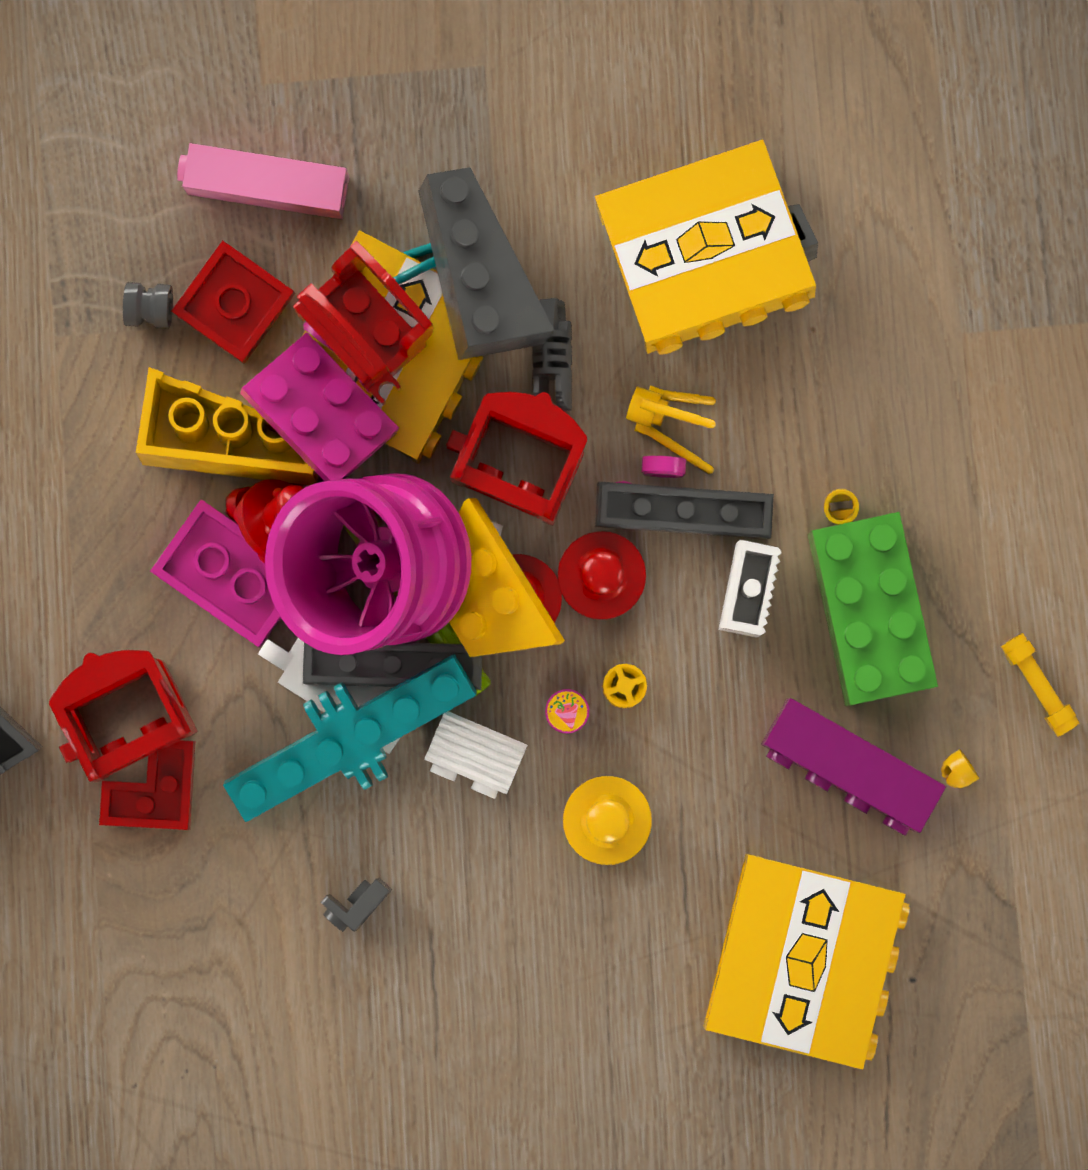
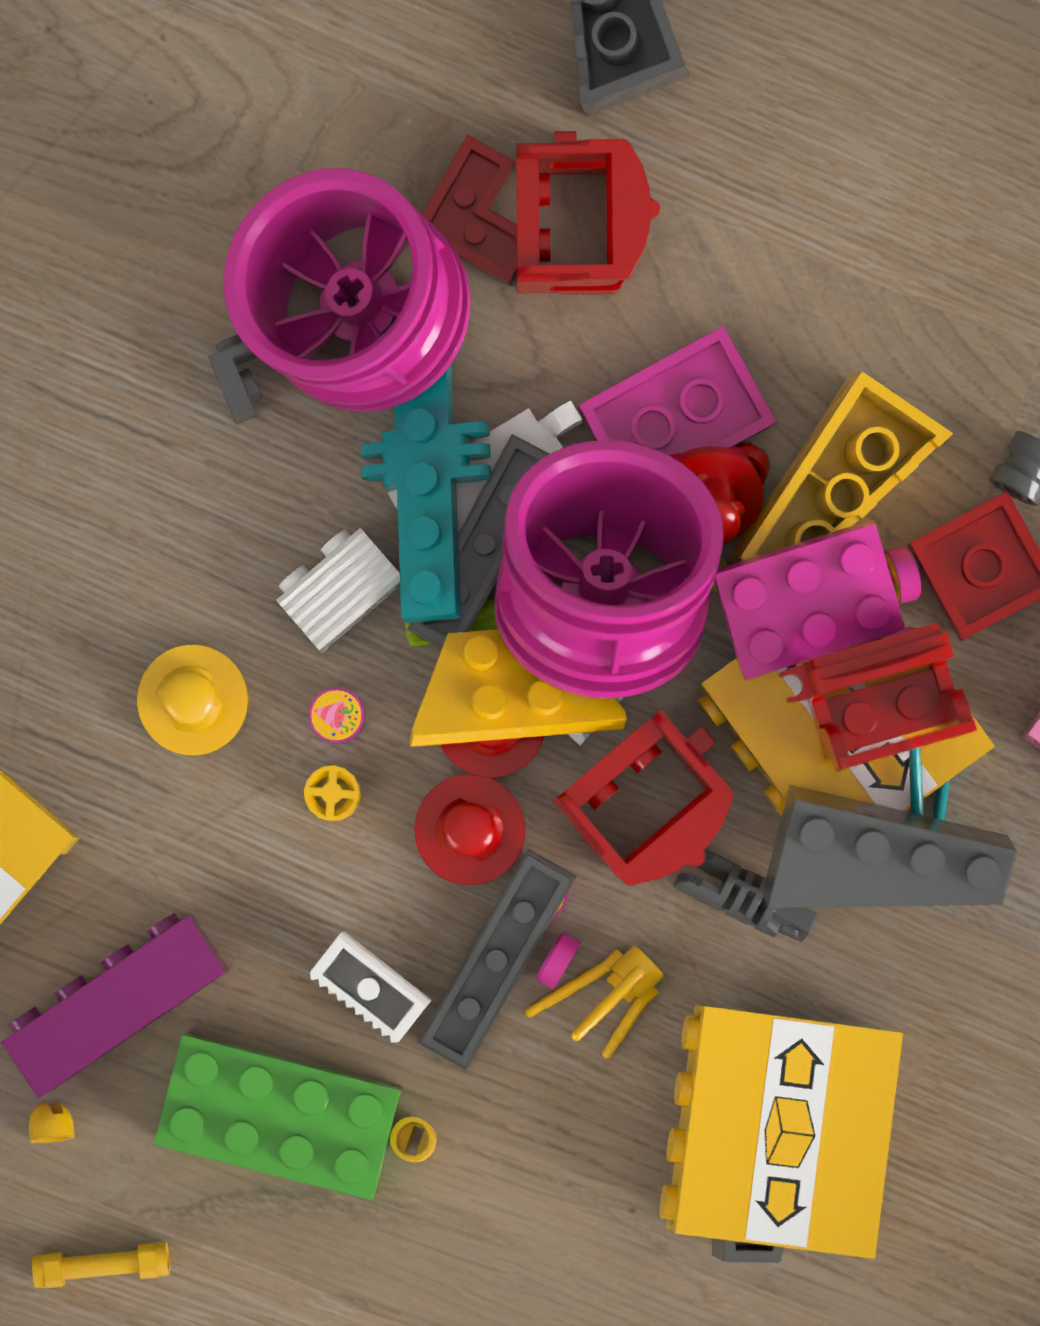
camera: 115 degrees right, 0 degrees up
(241, 915) = (287, 239): none -> dark pink wheel
(265, 354) = (903, 574): none -> dark pink tile

